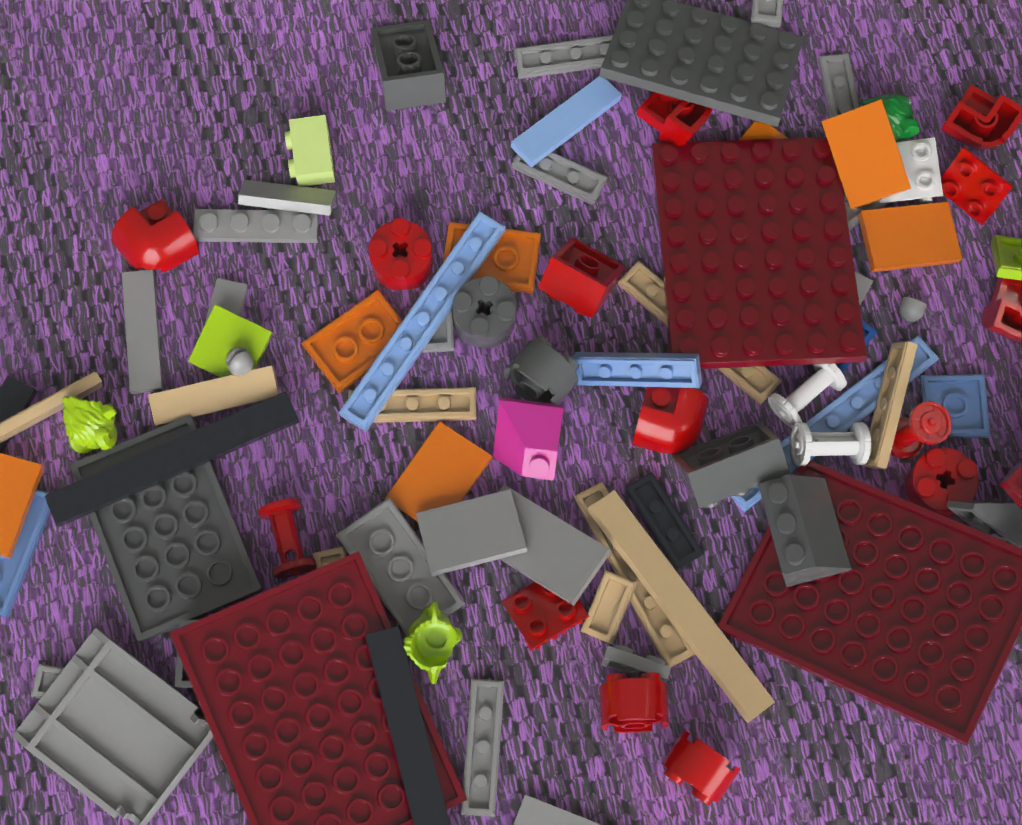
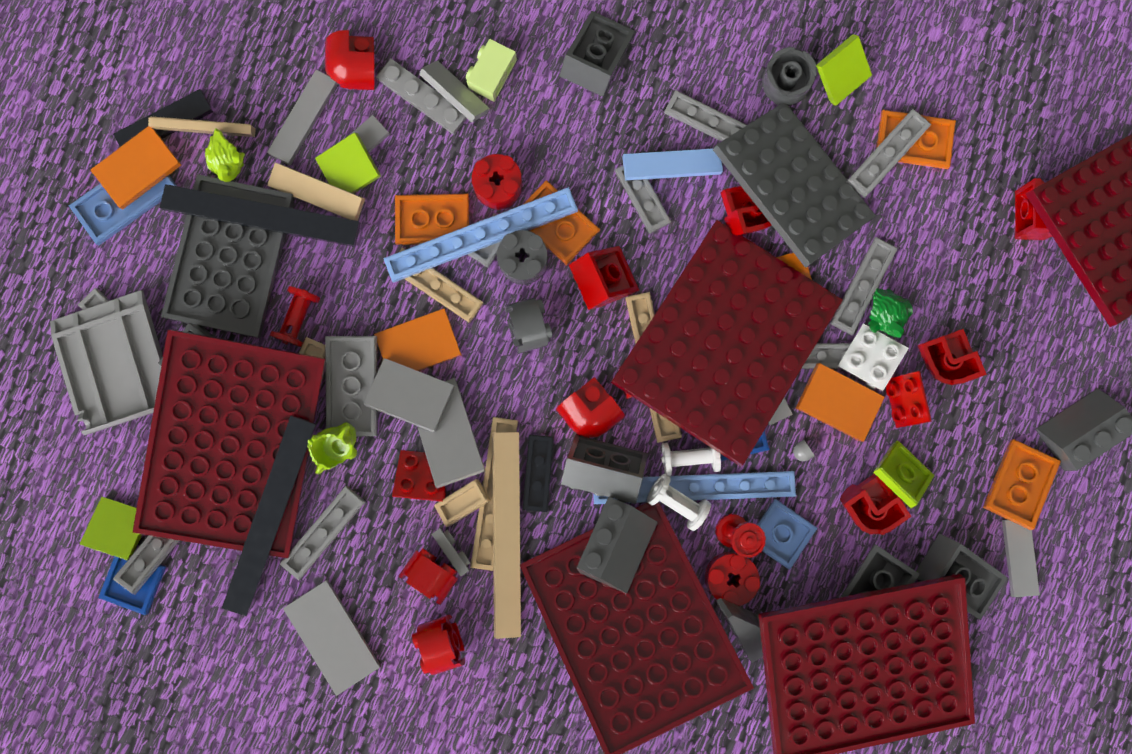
camera: 40 degrees right, 10 degrees up
(239, 361) = (343, 181): light grey hinge -> none
(528, 437) = (489, 360): dark pink slope -> none
(638, 369) = (590, 366): medium blue tile -> none
(866, 154) = (851, 328): orange tile -> none
(890, 403) = (738, 504): tan tile -> none

